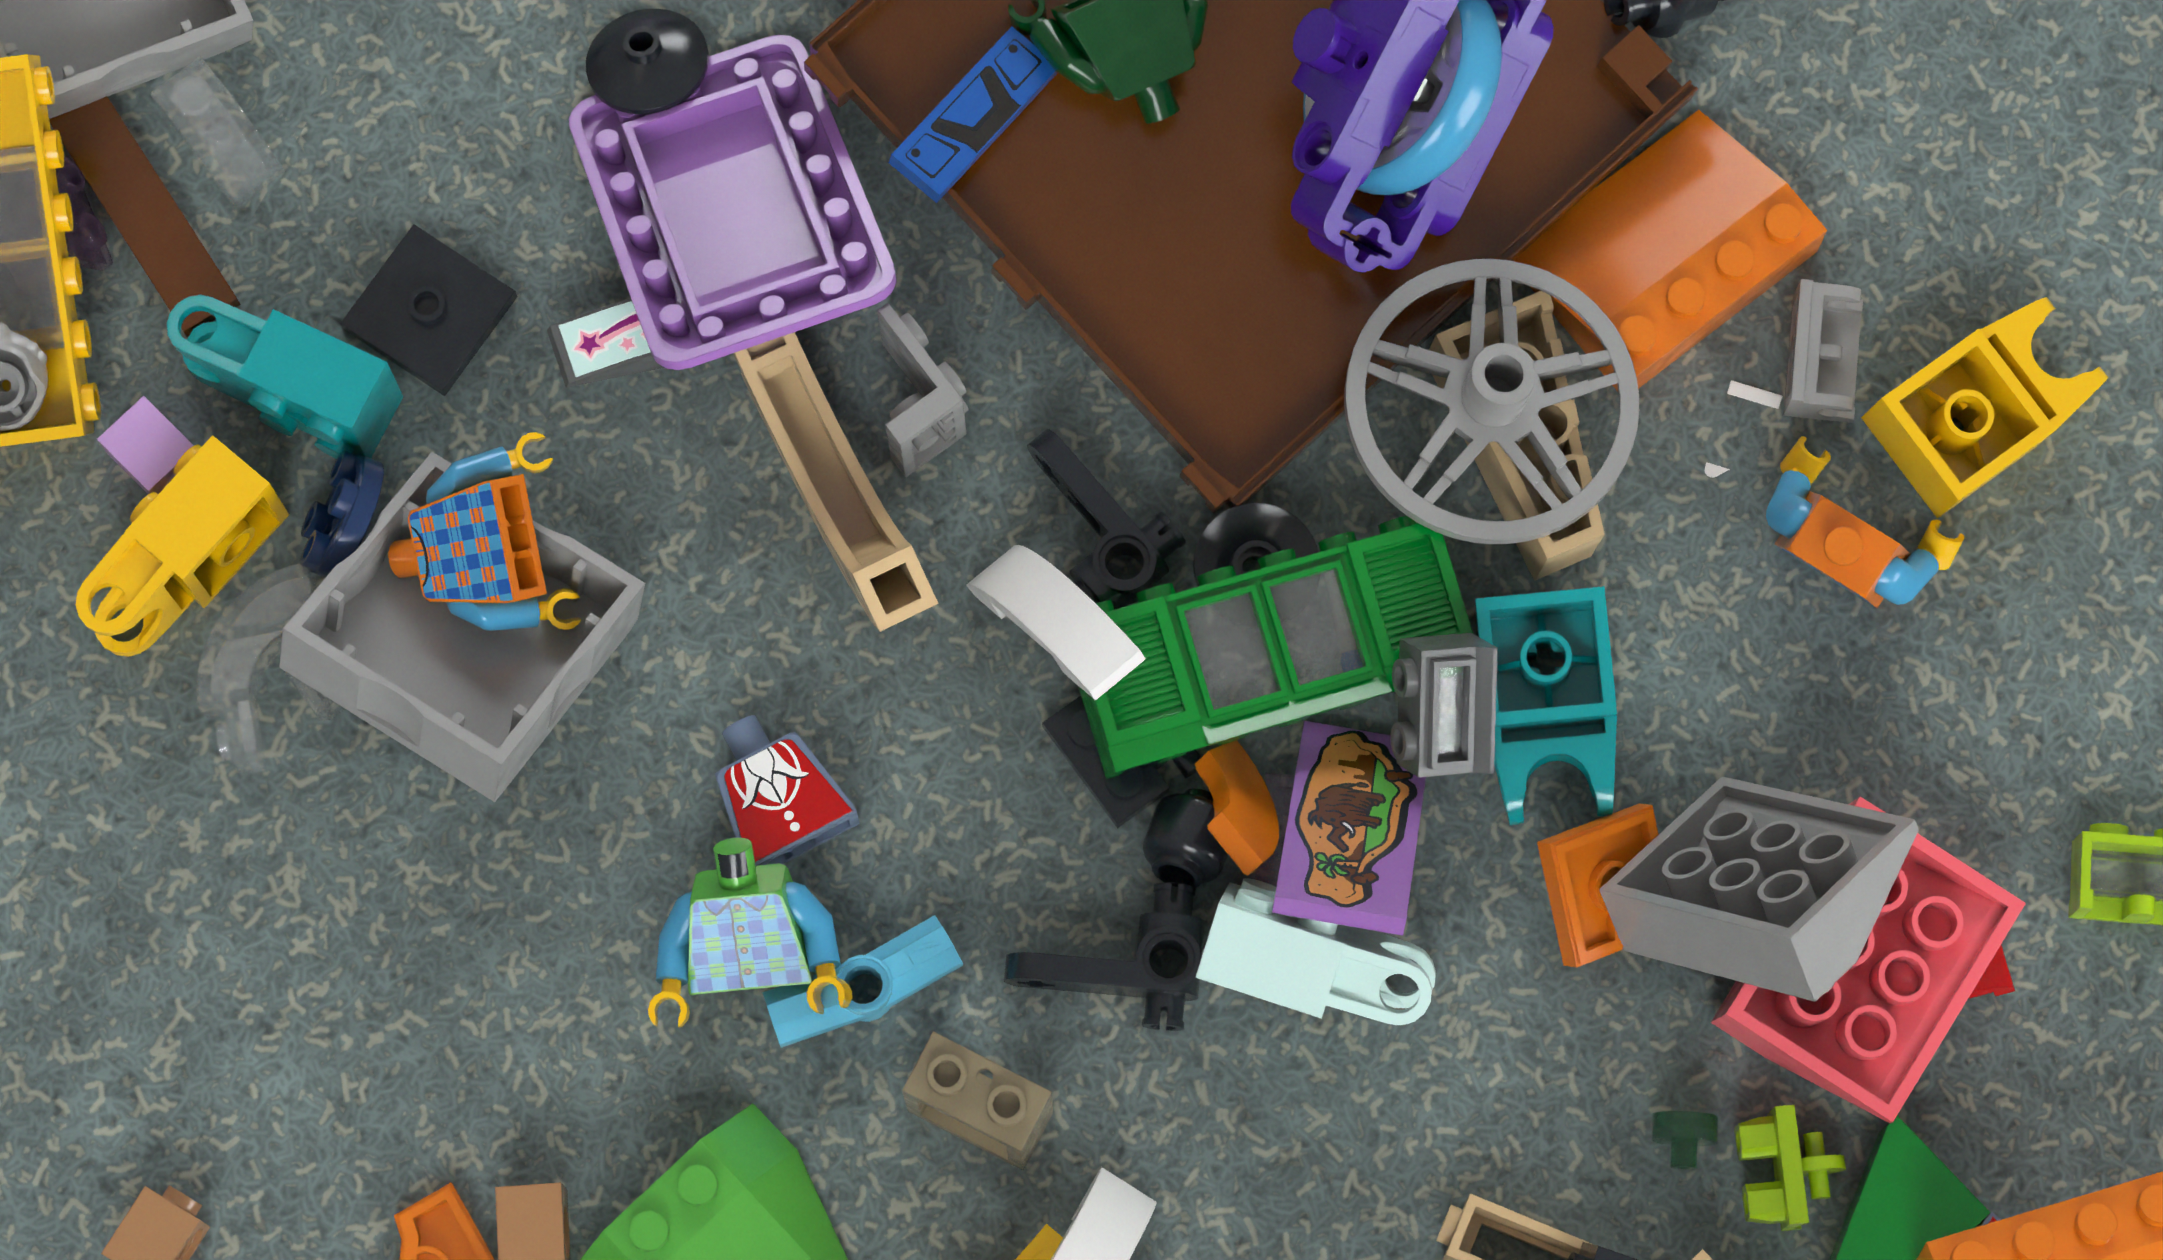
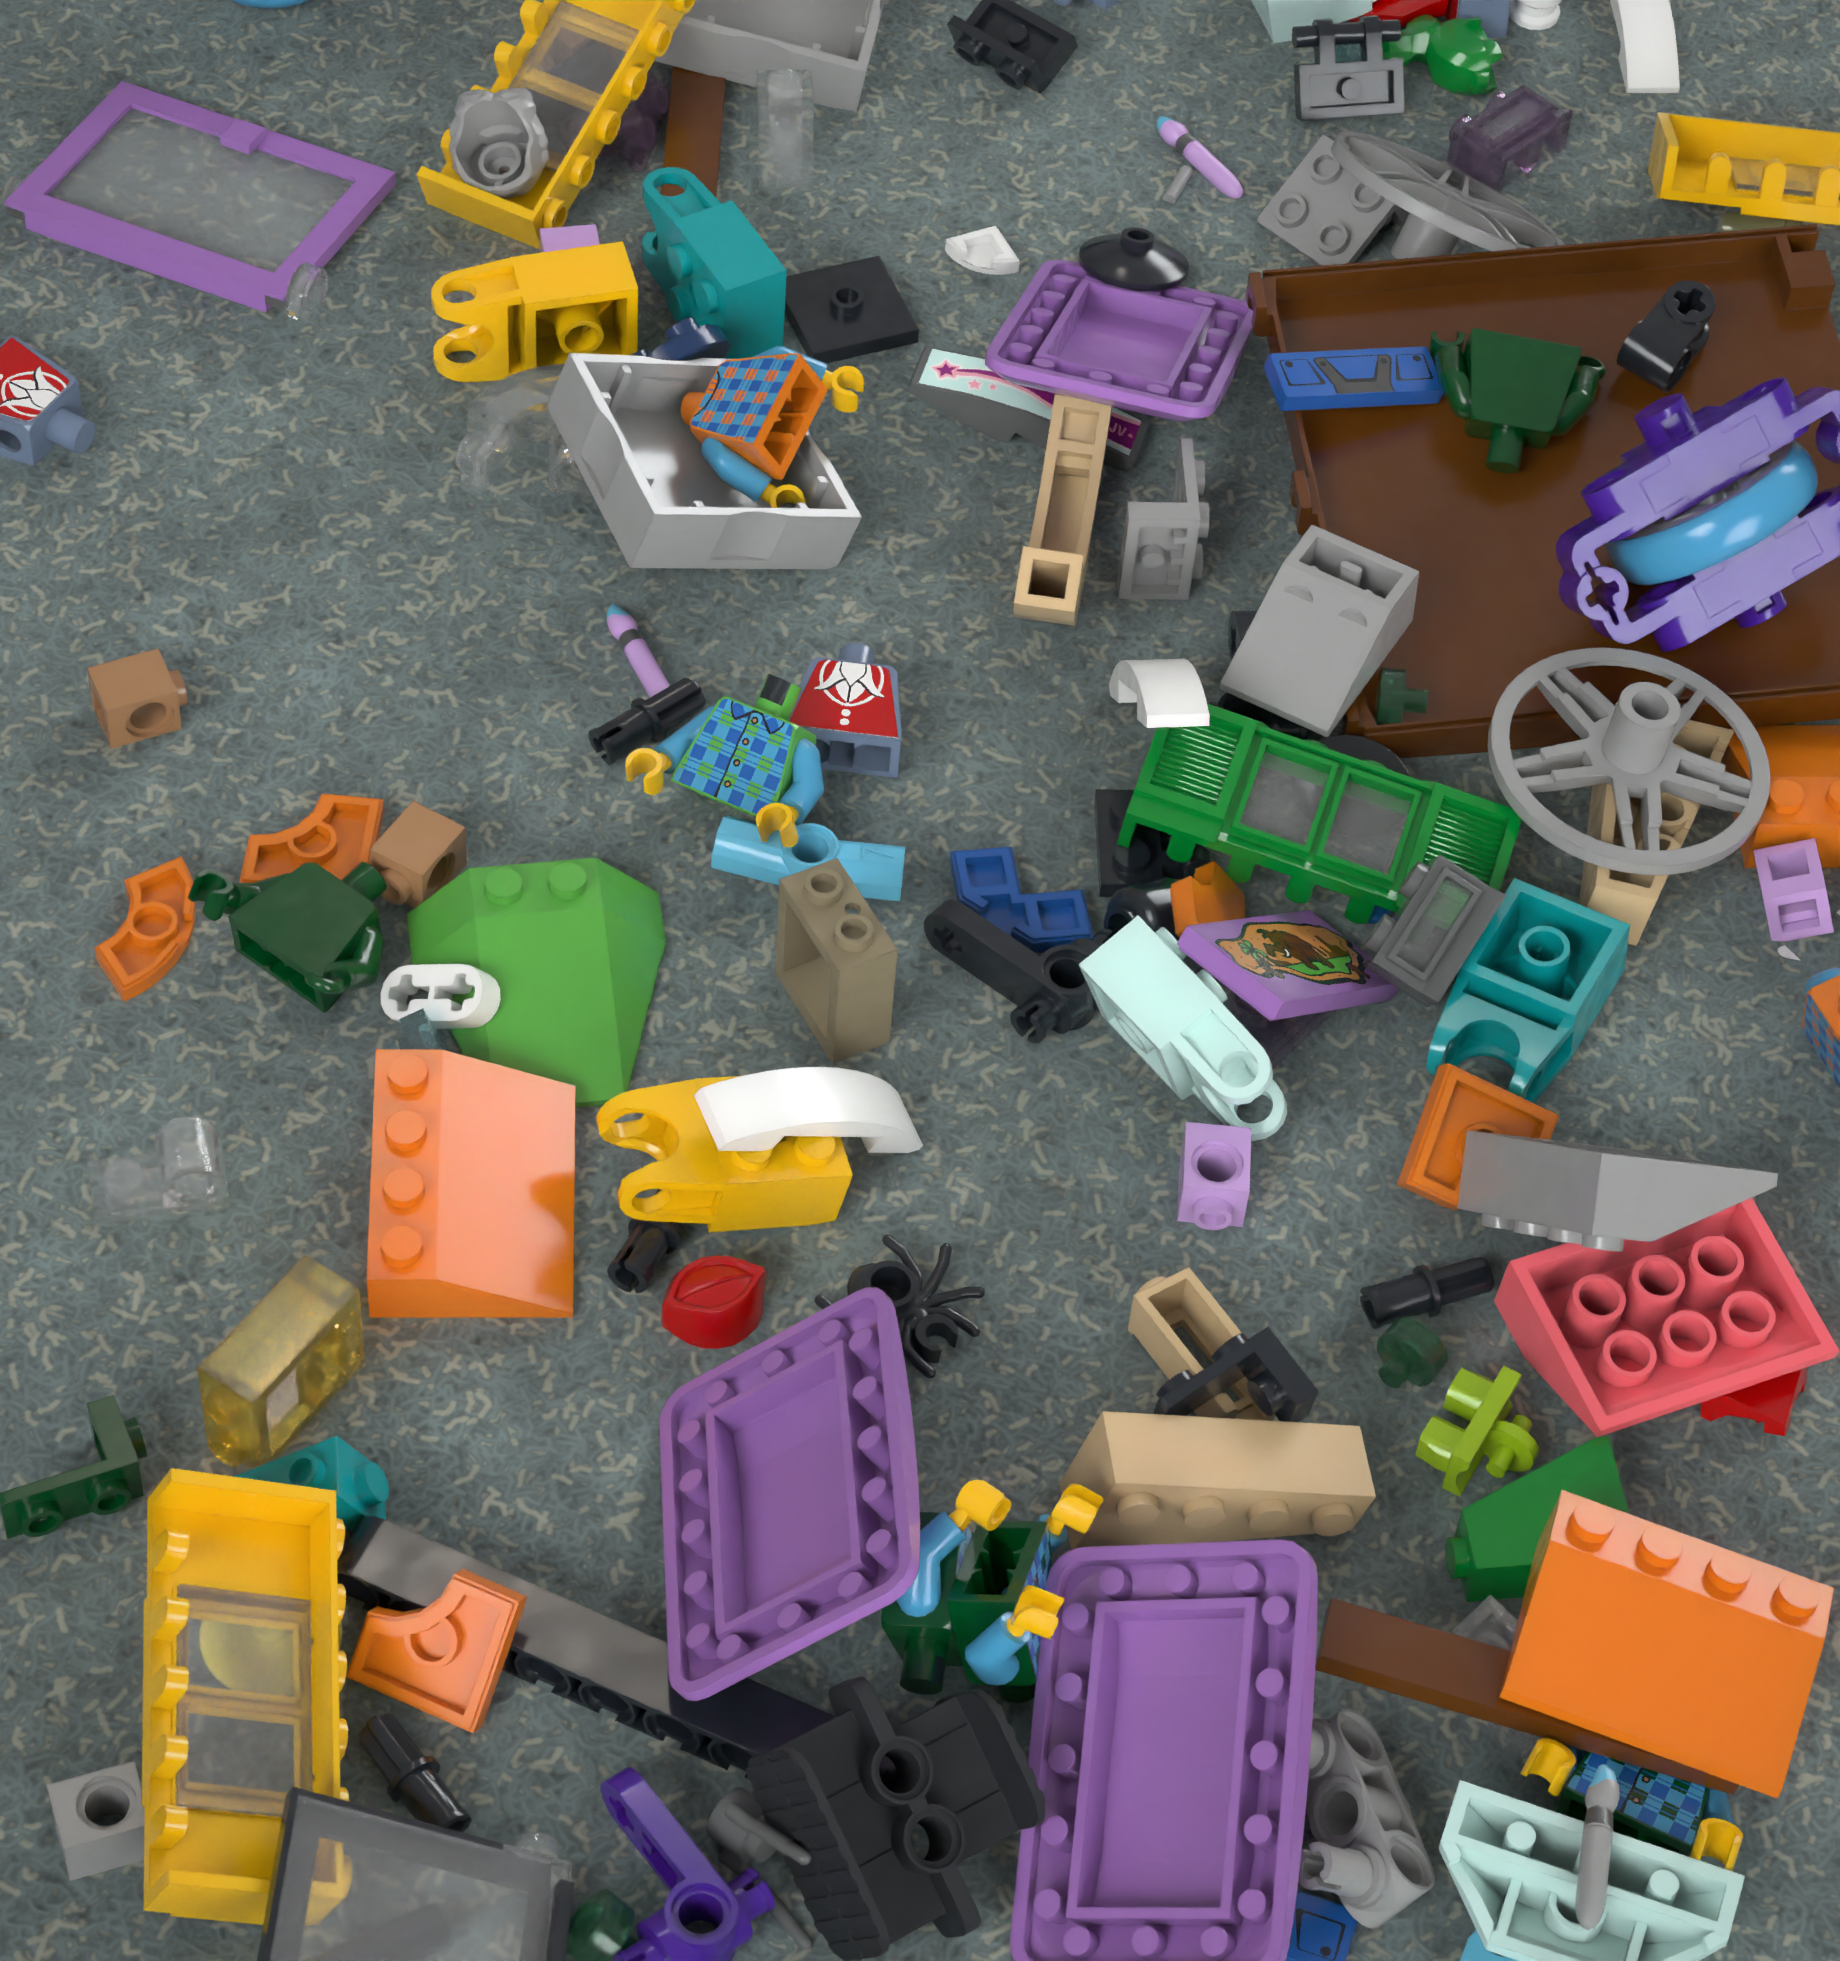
camera: 30 degrees right, 25 degrees down
(500, 142) = (983, 249): none -> white tile
(549, 857) = (625, 630): none -> lavender piece
(611, 926) = (647, 720): none -> black axle
(1034, 901) = (991, 887): none -> blue tile
(1146, 450) = (1322, 630): none -> light grey slope
(1234, 445) = (1395, 698): none -> clear green tile
(1423, 1042) = (1208, 1156): none -> lavender brick
(1654, 1053) = (1425, 1291): none -> black axle
(1703, 428) = (1793, 890): none -> lavender brick

